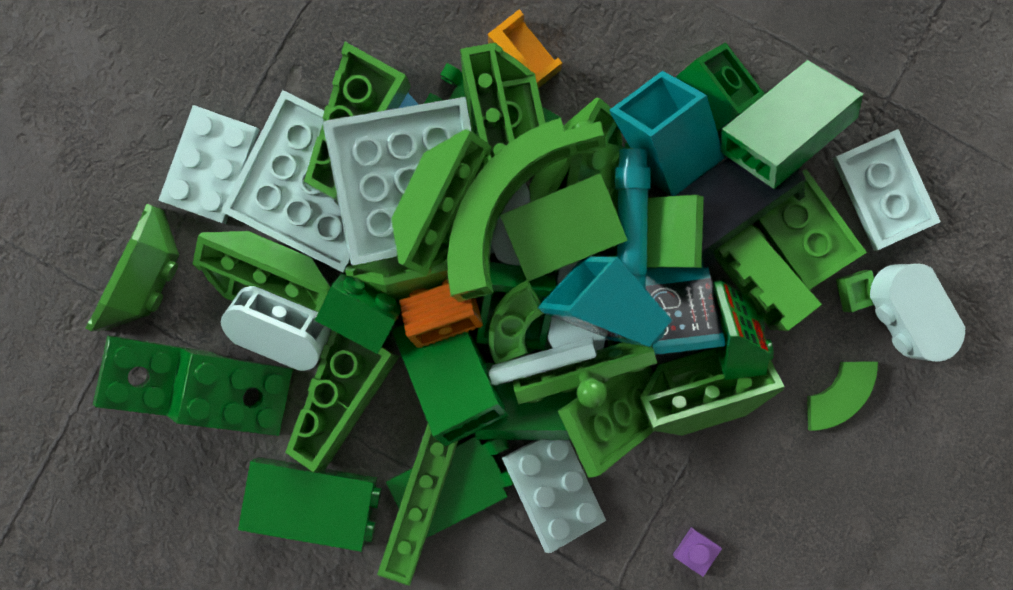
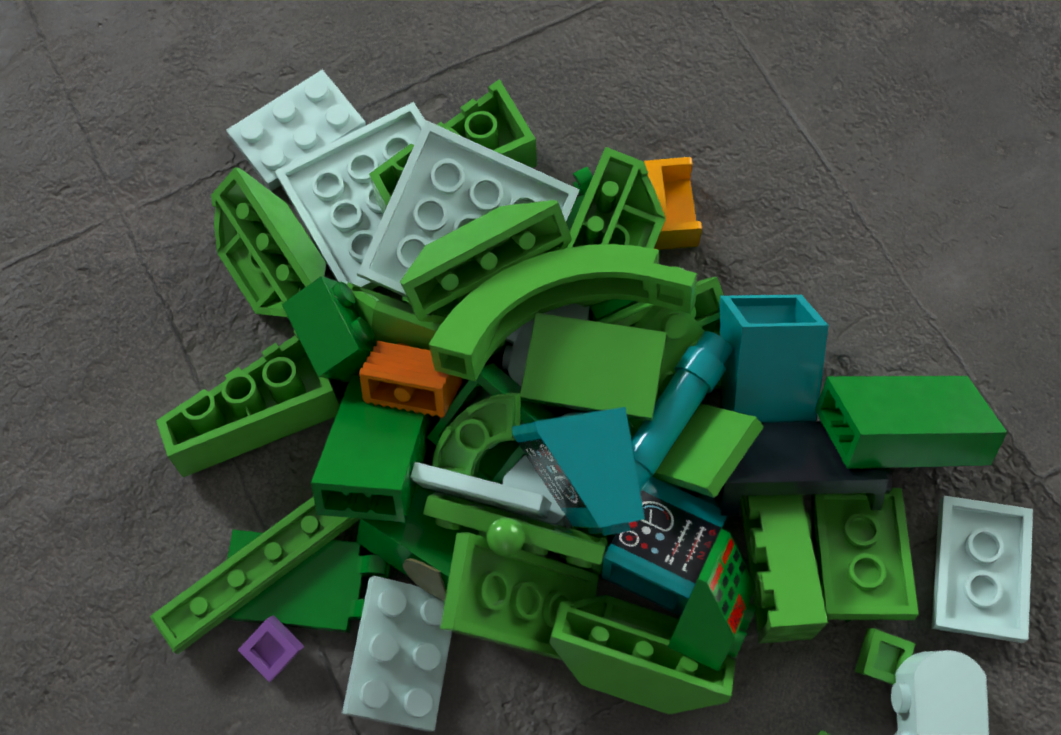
camera: 40 degrees right, 20 degrees down
(139, 275) = (152, 177): bright green wedge -> none
(192, 386) = (123, 307): green bracket -> none
(275, 328) = (240, 301): light aqua brick -> none
(309, 506) = (141, 499): green brick -> none
(468, 540) = (271, 648): none -> medium lavender plate
(542, 438) = (425, 577): none -> olive piece
(725, 83) = (857, 341): green slope -> none

